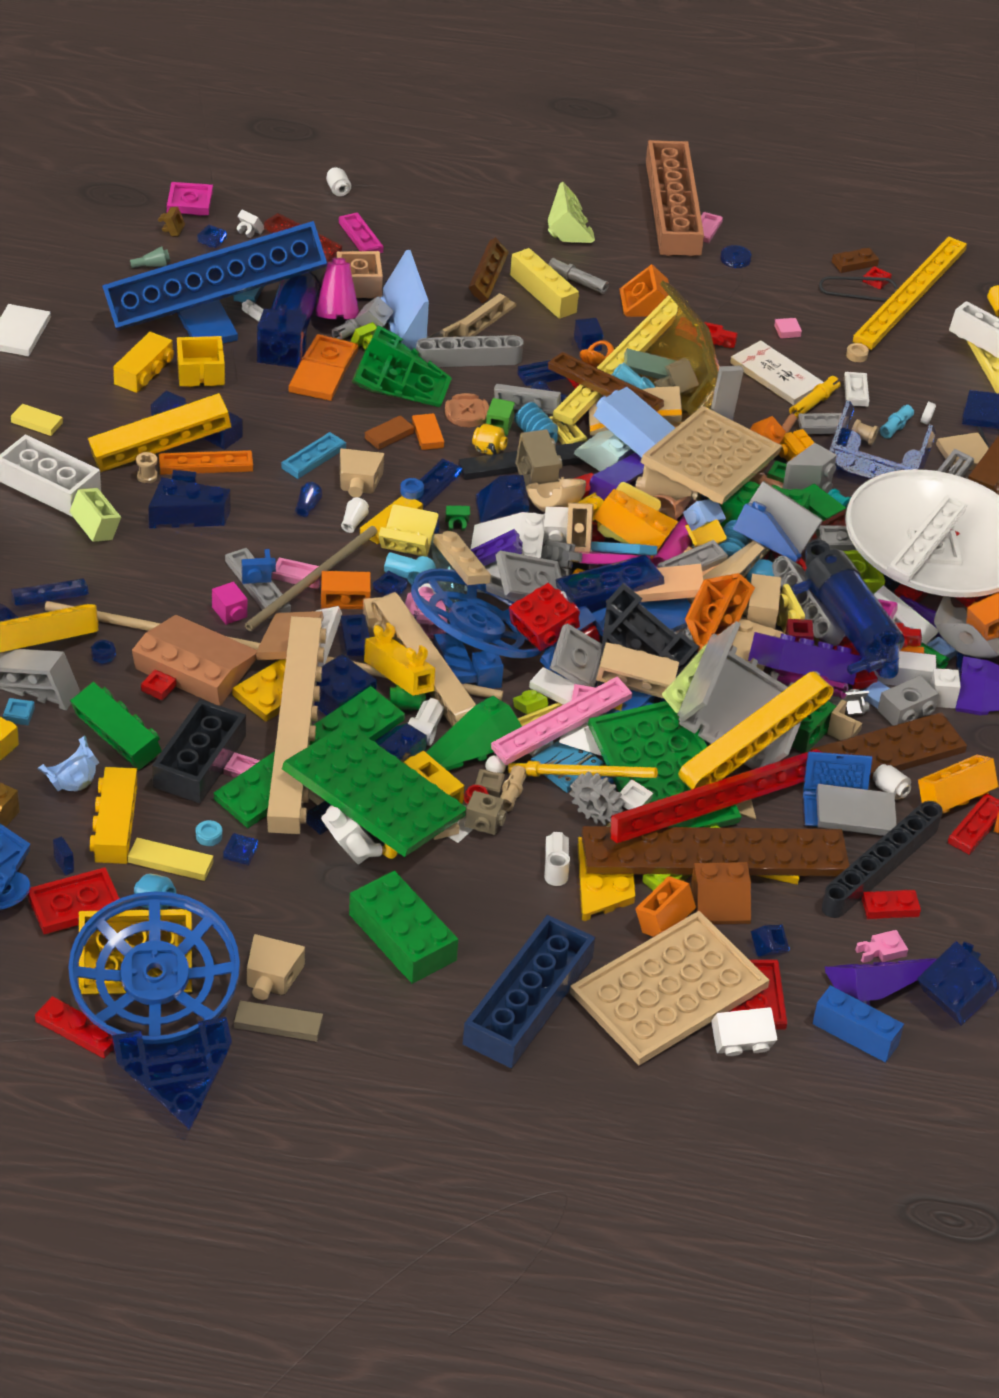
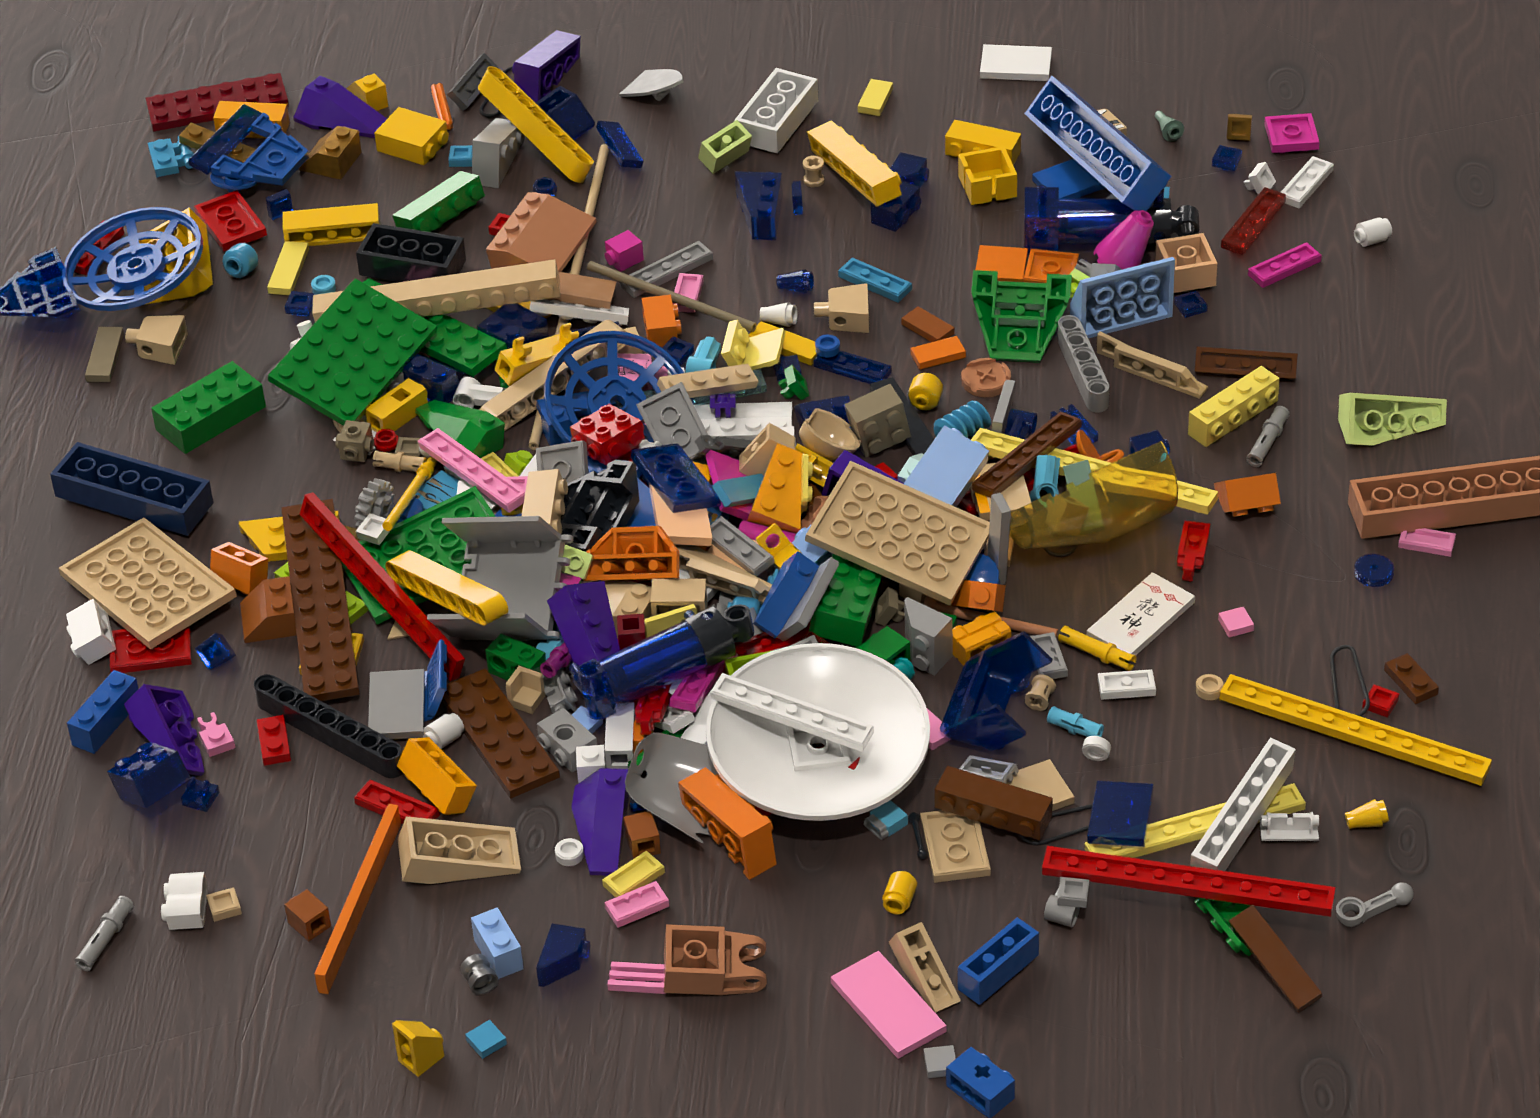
camera: 90 degrees right, 0 degrees up
(74, 772) = (375, 188): light blue helmet -> none
(206, 462) = (842, 211): orange tile -> none
(252, 204) = (1307, 181): none -> white tile
(258, 569) = (669, 260): blue bracket -> none
(501, 414) = (973, 390): bright green brick -> none
(557, 859) = (293, 492): white piece -> none

